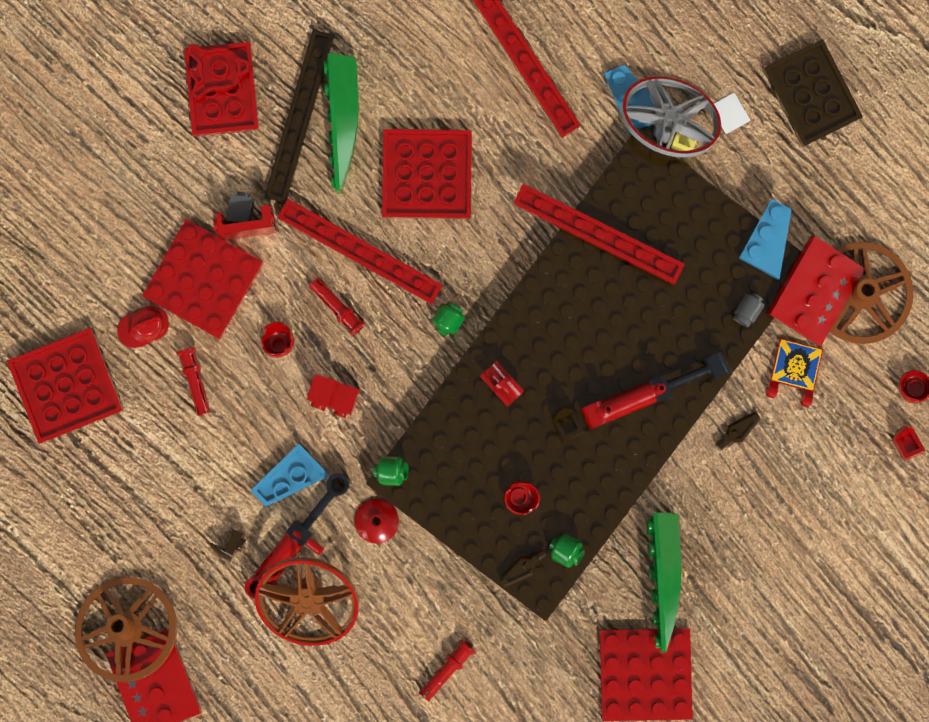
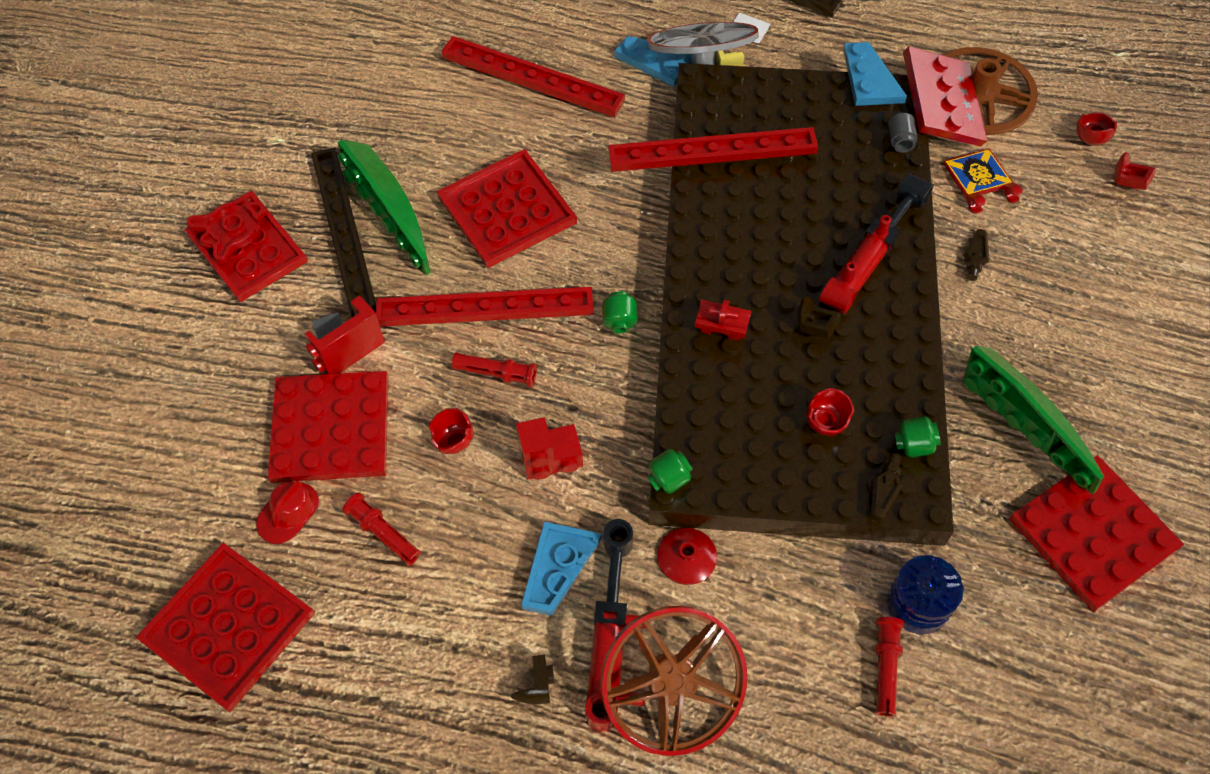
camera: 30 degrees left, 25 degrees down
(485, 647) = (914, 604): none -> clear blue wheel

